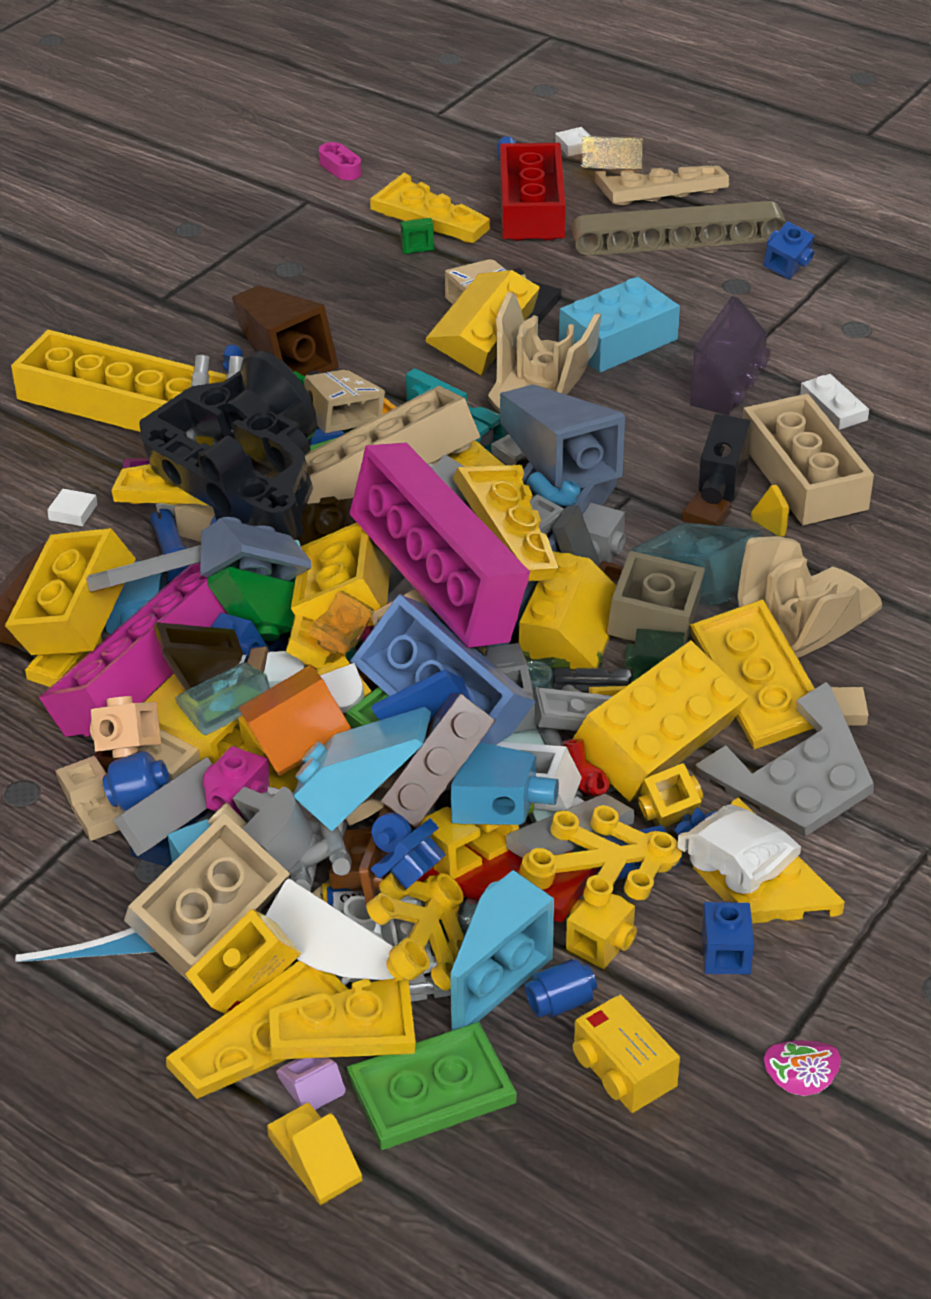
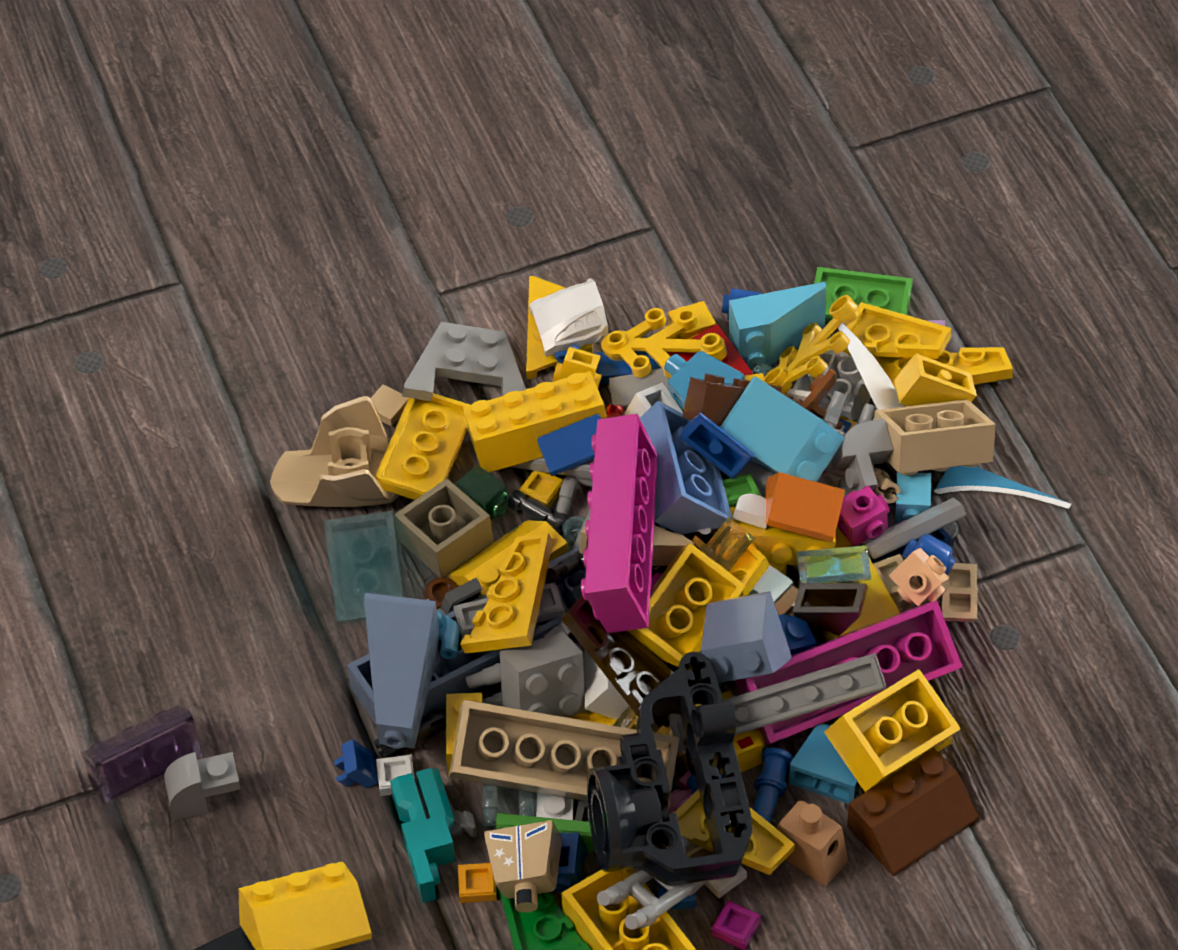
camera: 145 degrees left, 10 degrees up
(72, 507) = (820, 912): white tile -> none
(115, 509) = (817, 841): none -> medium nougat torso
(316, 1151) = (954, 296): yellow slope -> none
(409, 852) = (798, 372): blue hips -> none
(529, 361) = (295, 828): tan piece -> none
(585, 697) = (569, 445): none -> blue slope
(625, 1053) = (740, 252): yellow brick -> none
(632, 322) = (178, 862): medium azure brick -> none
(659, 360) = (192, 780): none -> light grey brick
(702, 512) = (310, 620): reddish brown tile -> none
(720, 475) = (264, 632): black torso -> none
(727, 938) = (622, 285): blue brick -> none
(772, 511) = (264, 583): yellow slope -> none
(802, 1066) = (639, 213): sticker -> none
(808, 459) = (195, 606): tan brick -> none
(835, 401) = (88, 682): white plate -> none

